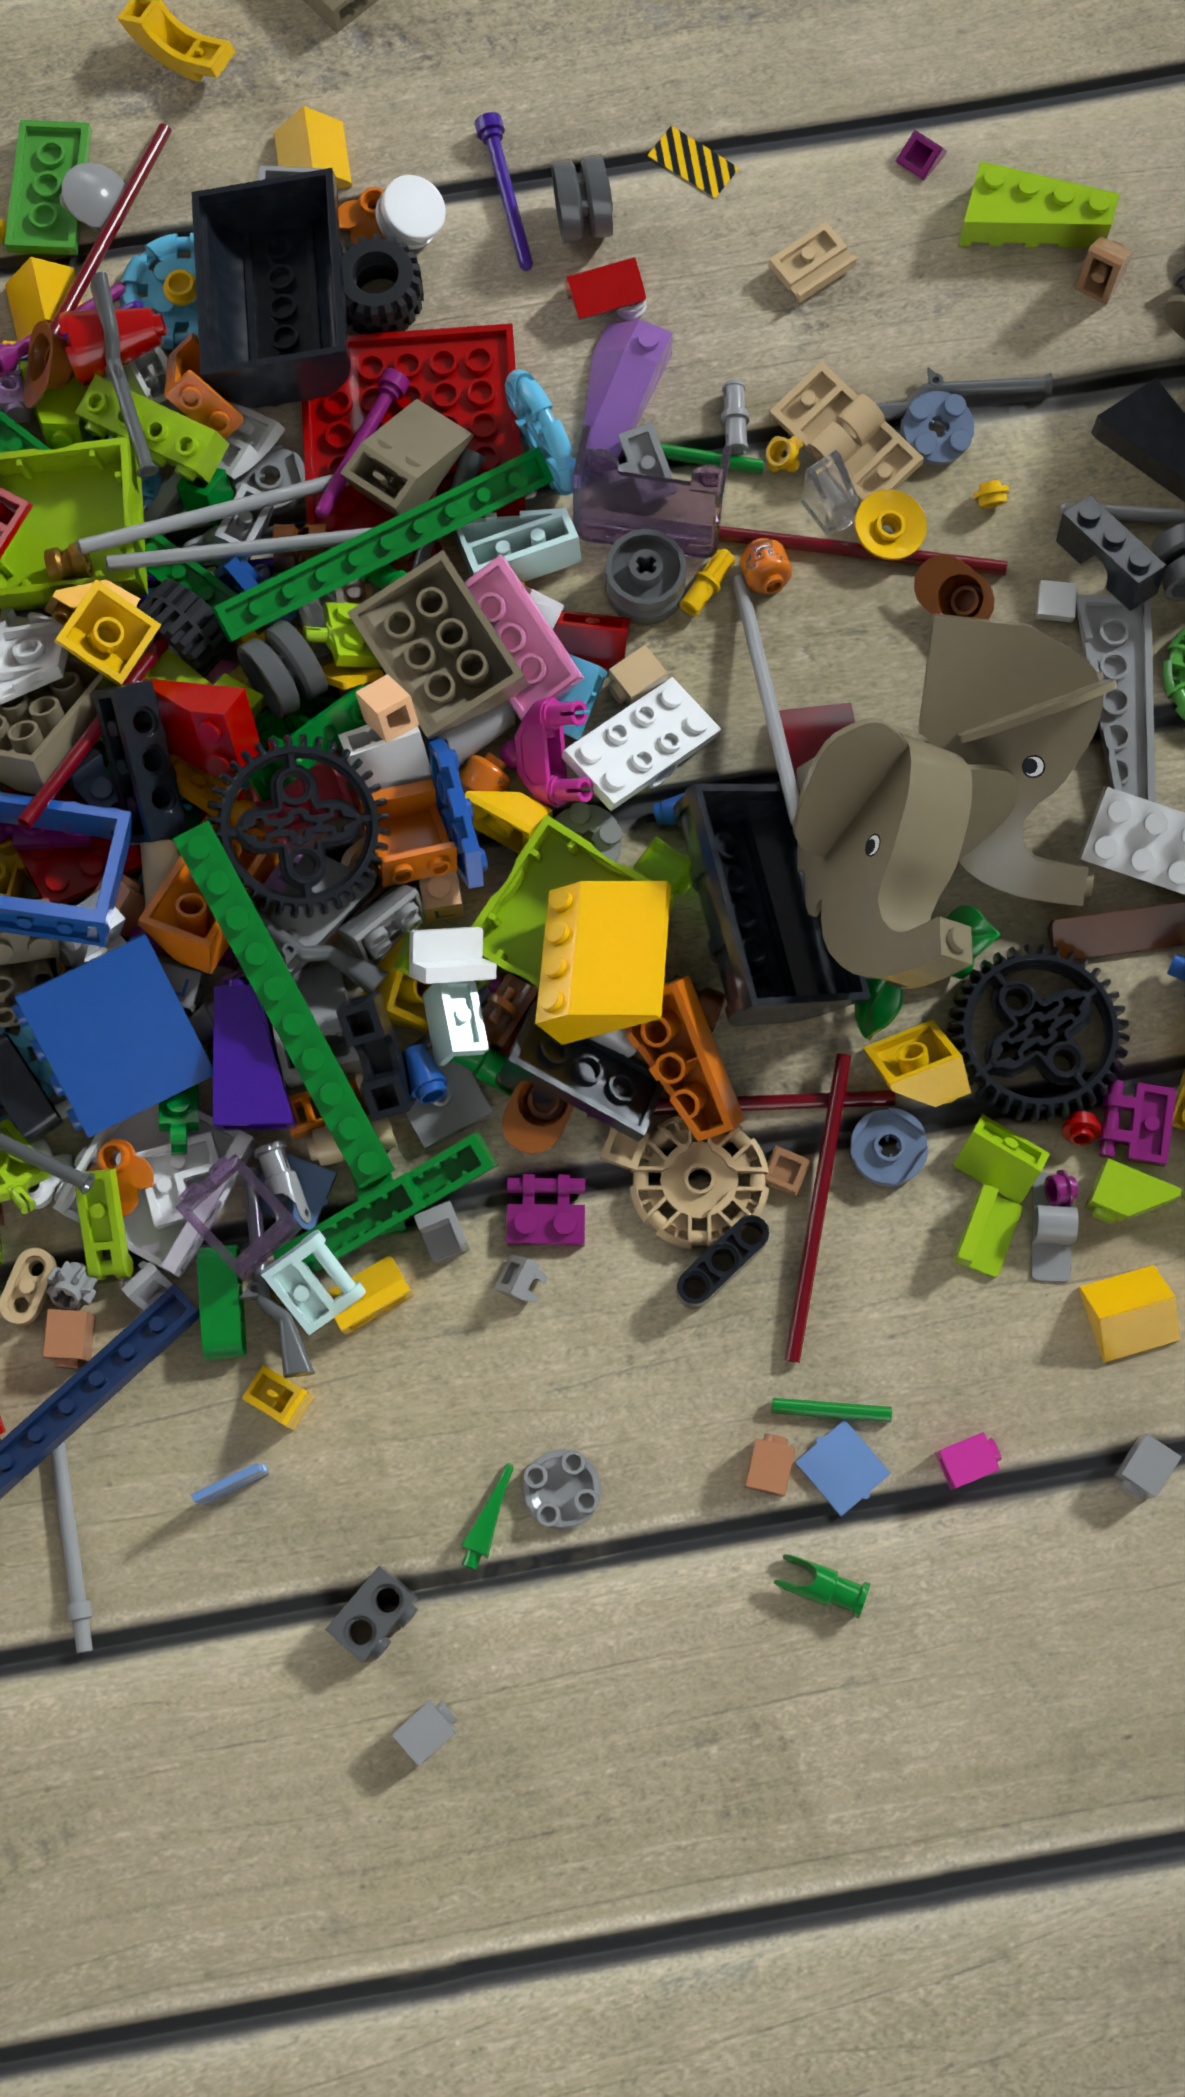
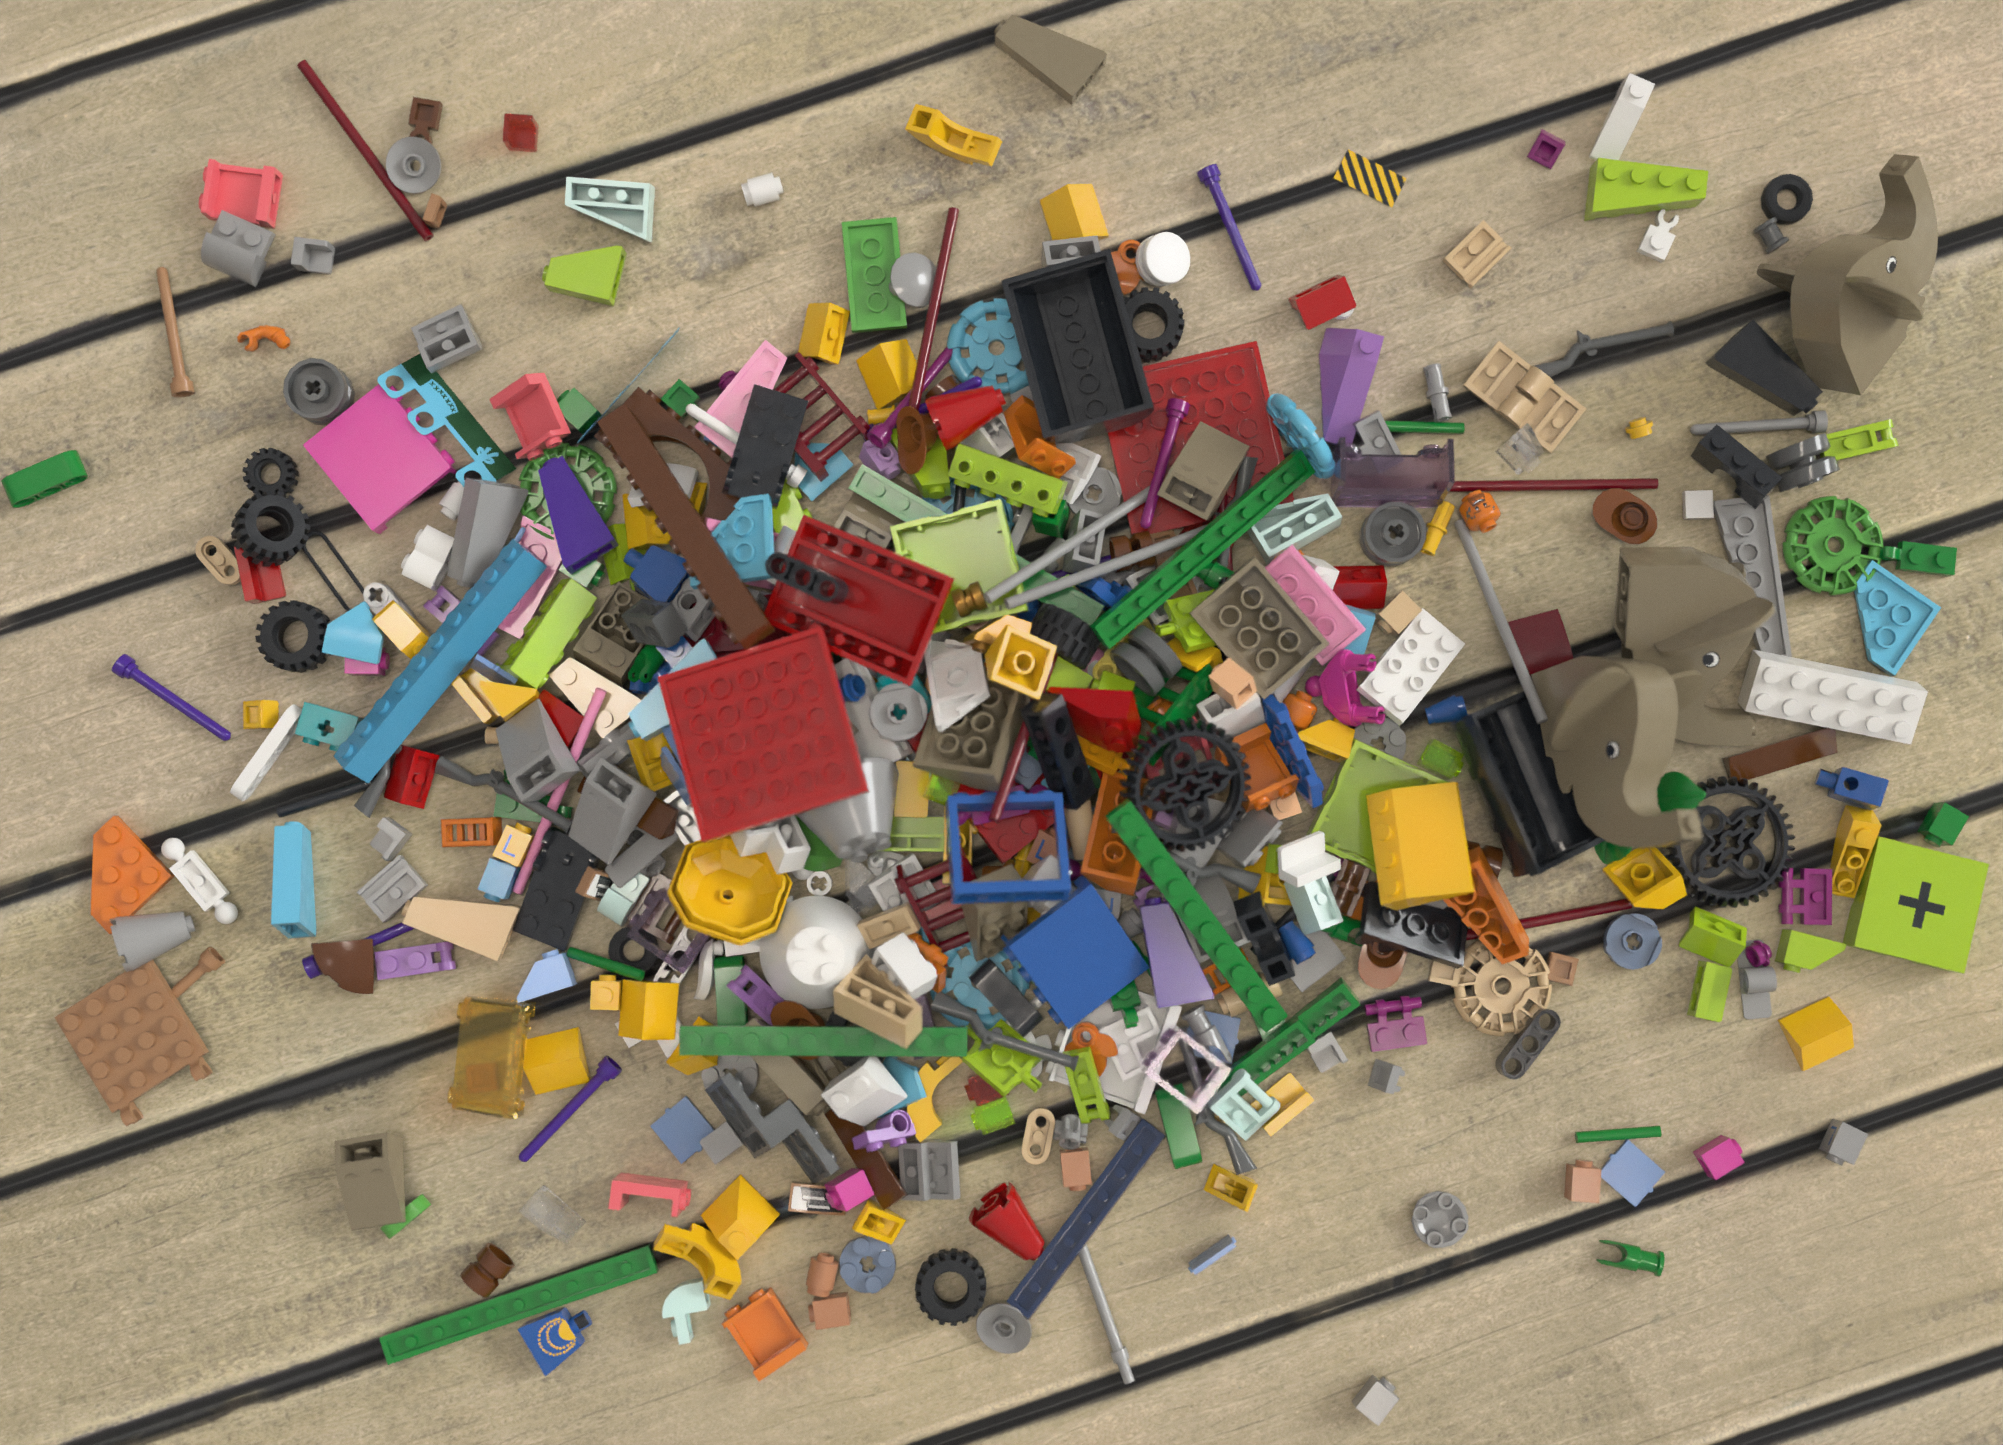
camera: 15 degrees left, 10 degrees up
(114, 372) = (976, 443): dark grey piece -> none
(180, 287) = (999, 350): yellow plate -> none
(366, 1607) = (1318, 1323): dark grey brick -> none
(480, 1536) = (1389, 1259): green piece -> none
(582, 199) = (1296, 232): dark grey wheel -> none
(775, 452) = (1473, 422): yellow plate -> none
(818, 1208) = (1589, 992): dark red piece -> none
(896, 511) = (1580, 465): yellow dish -> none
(949, 411) = (1607, 379): sand blue plate -> none
(1025, 121) = (1622, 117): none -> white slope
(1049, 276) = (1657, 238): none -> white plate
(1081, 1128) = (1767, 907): red plate -> none
(1103, 269) = (1702, 230): medium nougat slope -> none

